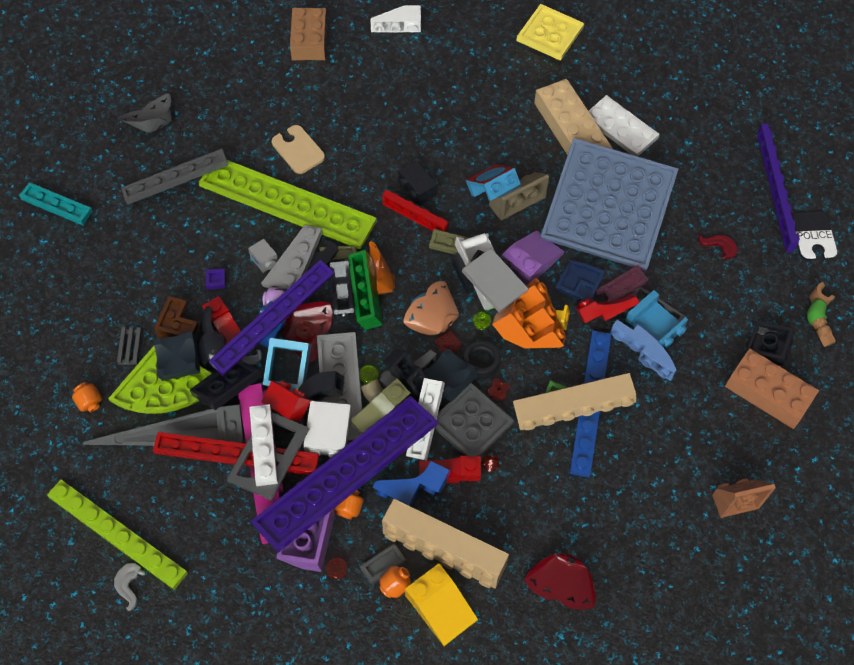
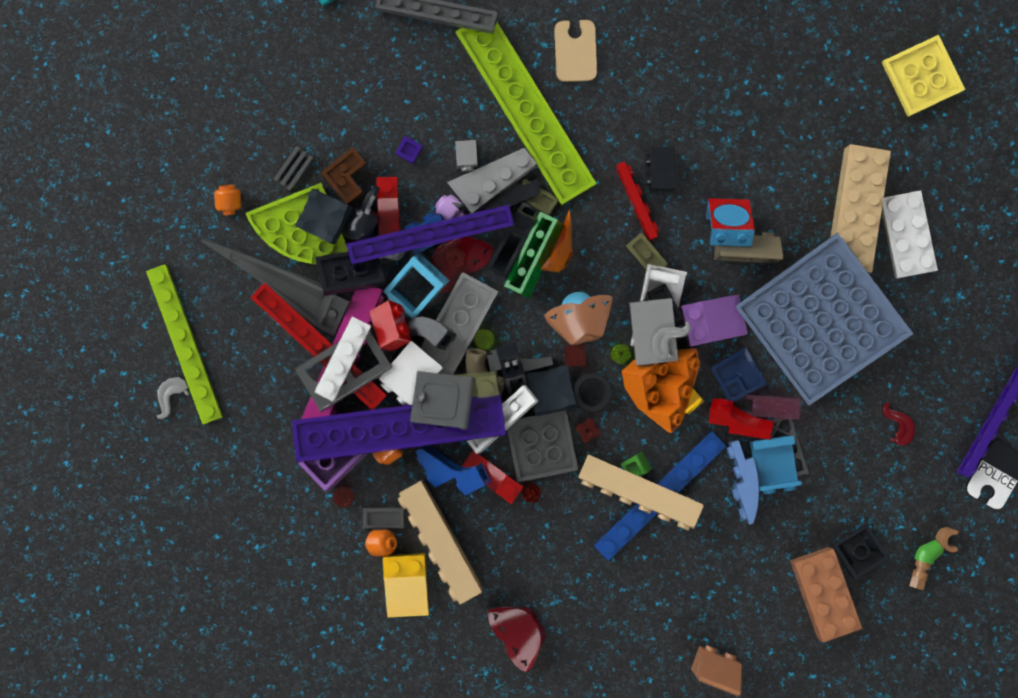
camera: 35 degrees right, 25 degrees up
(370, 423) = (446, 399): none -> dark grey container
(505, 280) = (662, 337): none -> light grey piece

